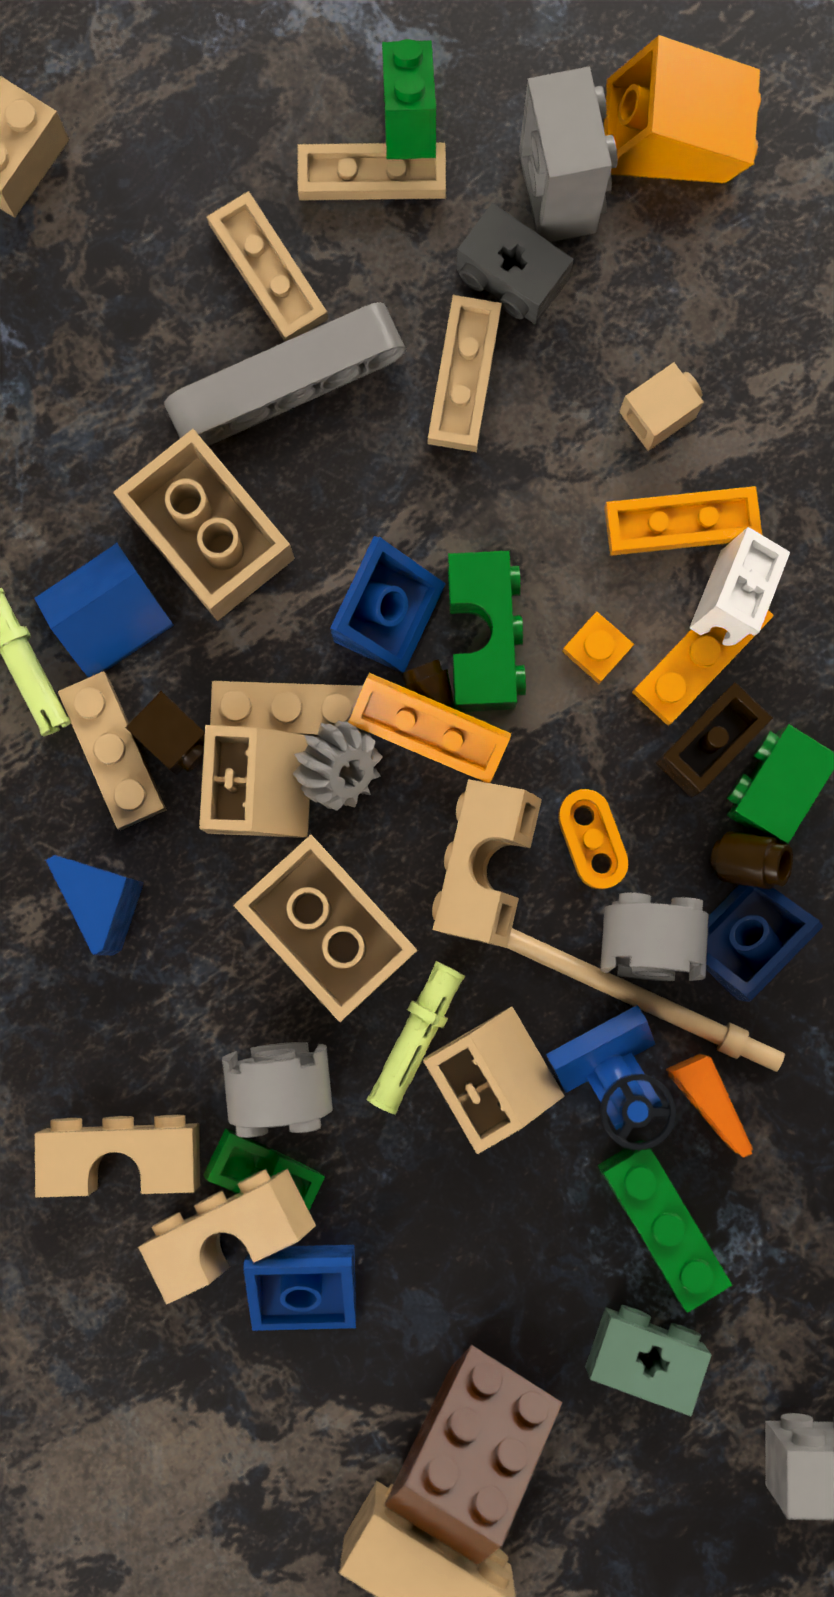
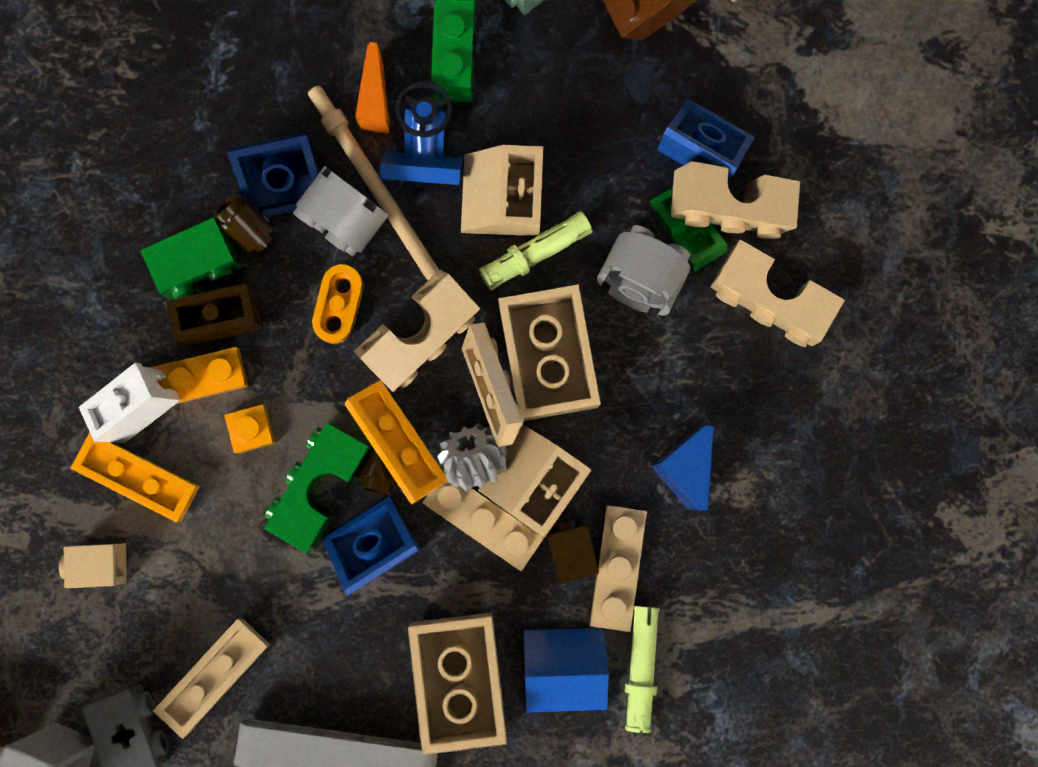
camera: 150 degrees left, 0 degrees up
(365, 854) = (492, 384): none -> tan plate

